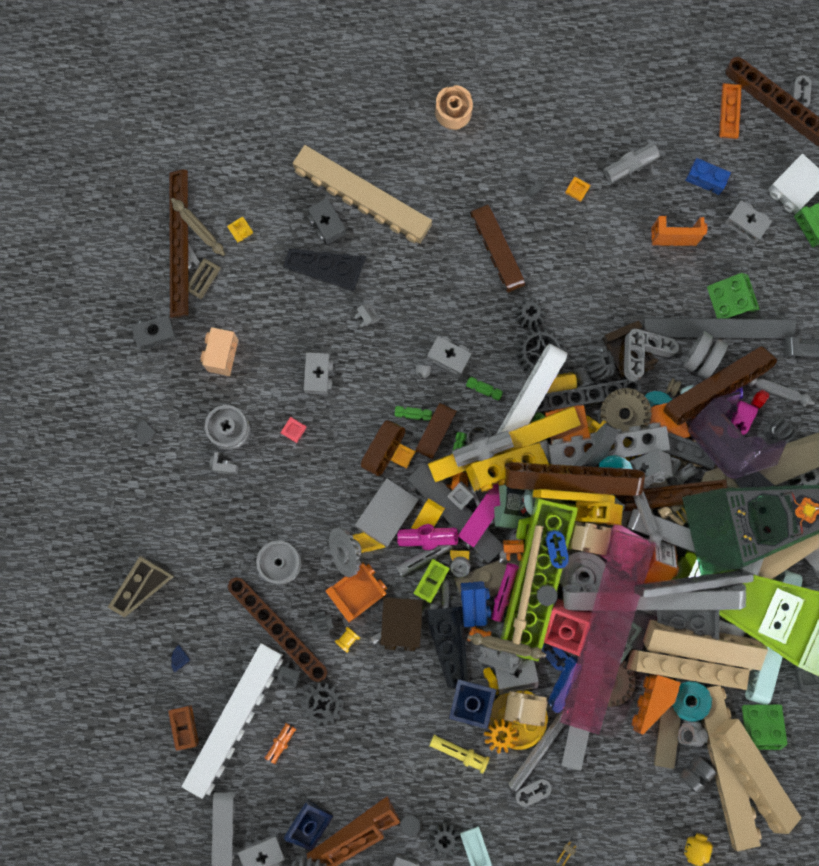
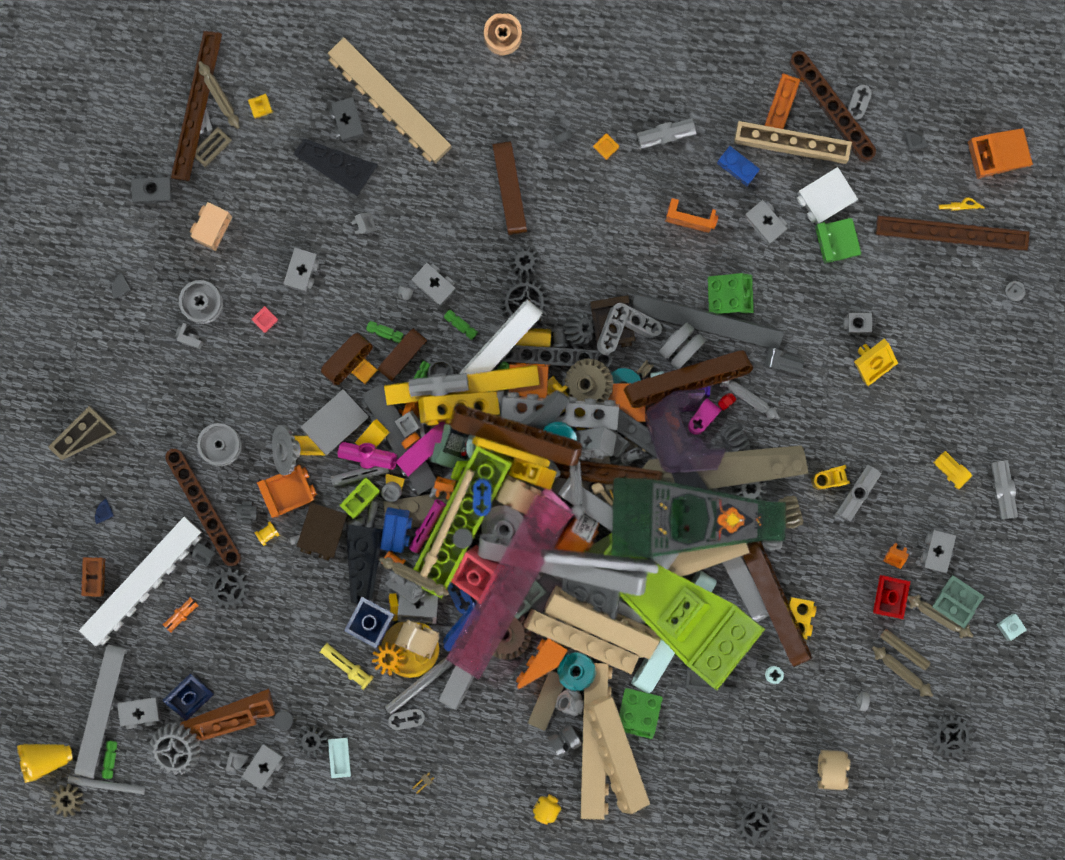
camera: 15 degrees right, 5 degrees up
(467, 511) = (409, 441): none -> orange tile
(753, 142) = (792, 142): none -> tan brick

